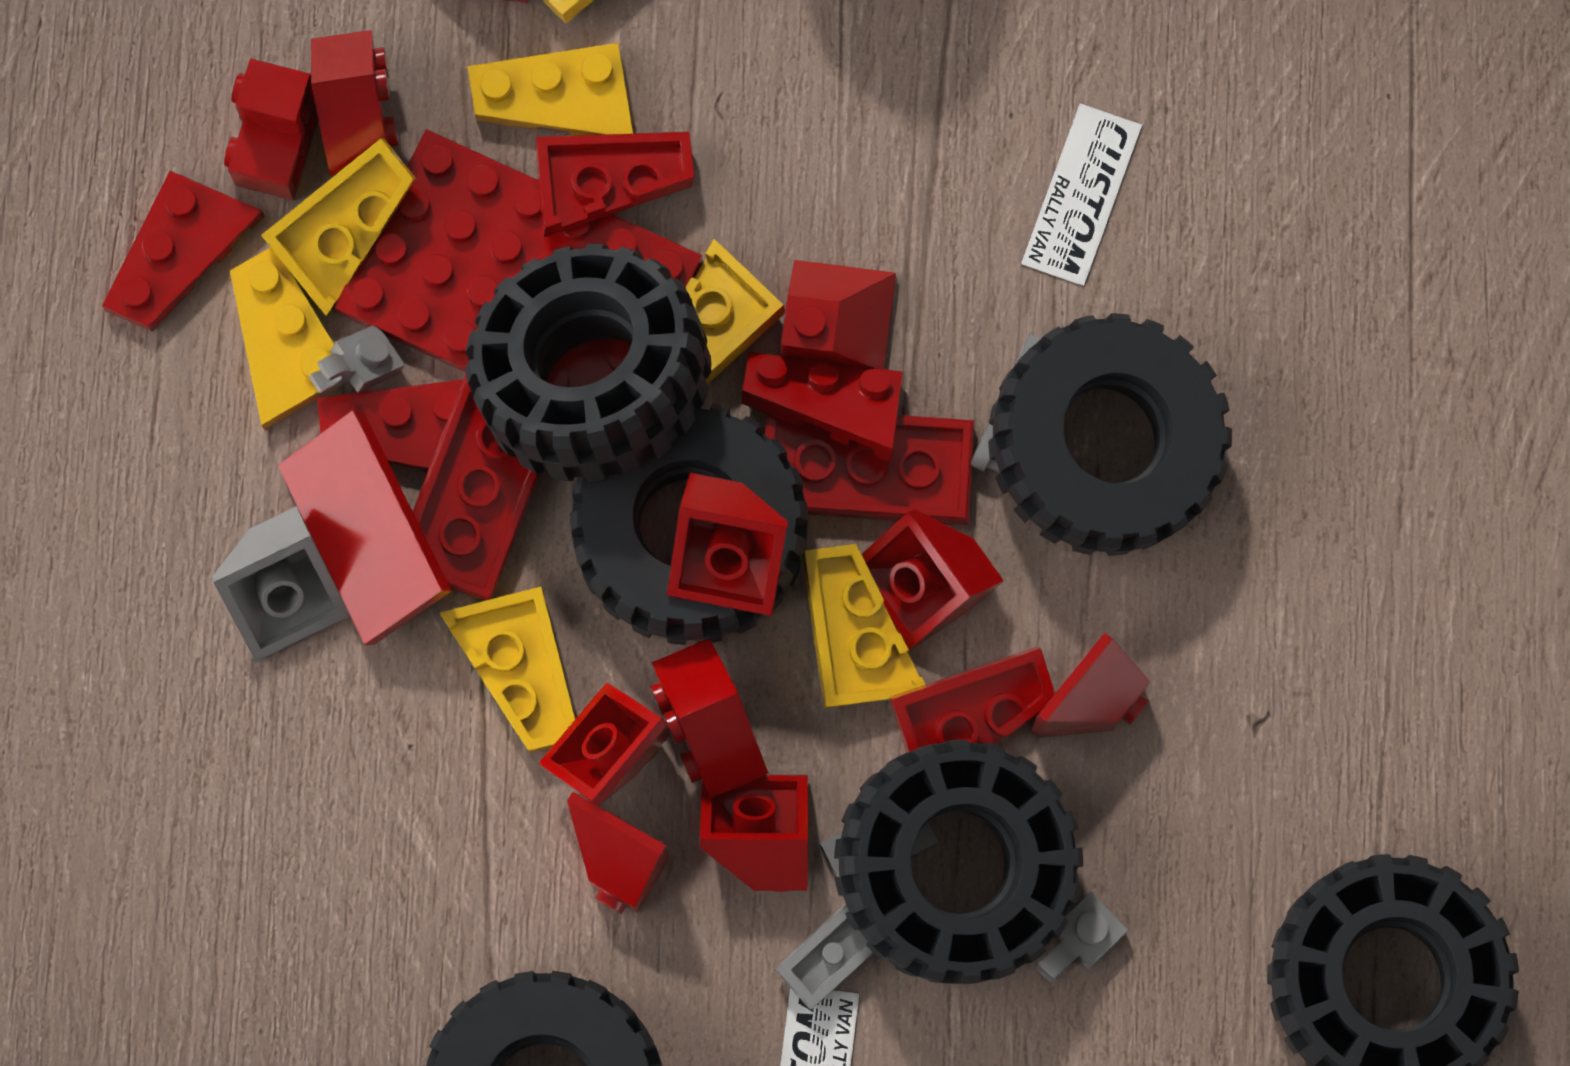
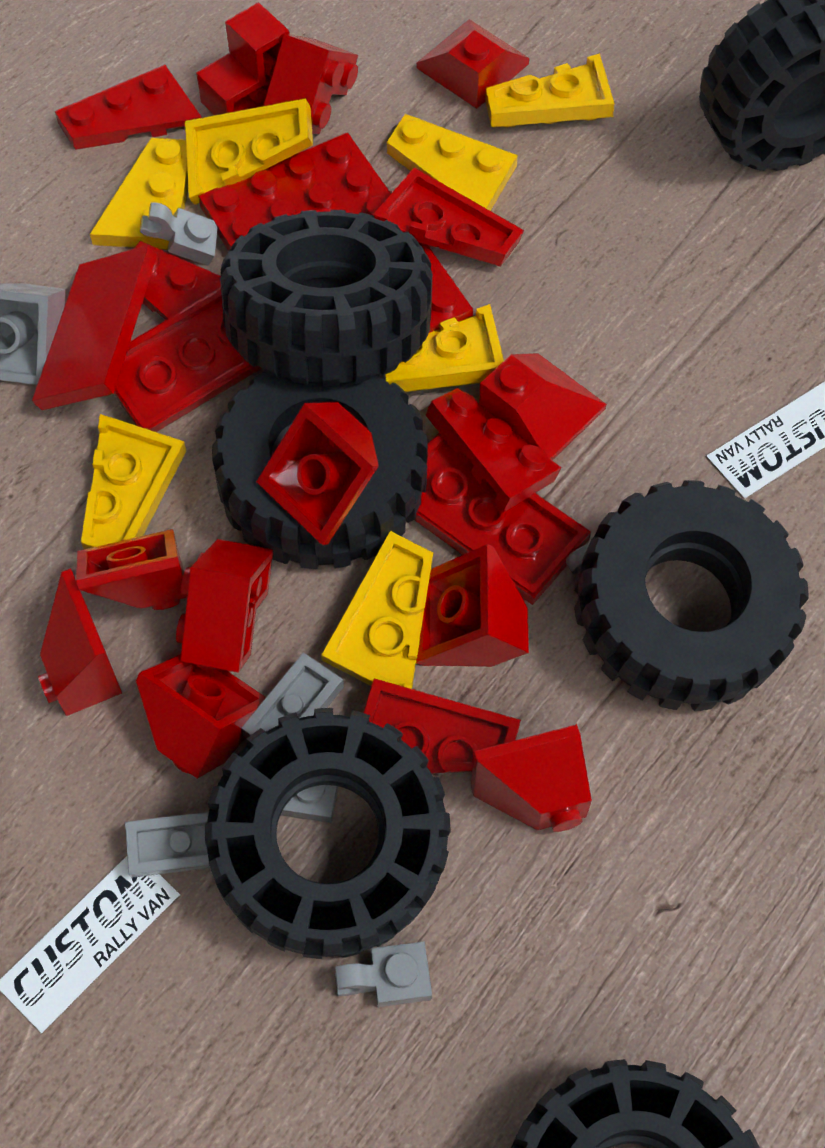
camera: 35 degrees right, 15 degrees down
(833, 766) = (300, 690): none -> light grey plate

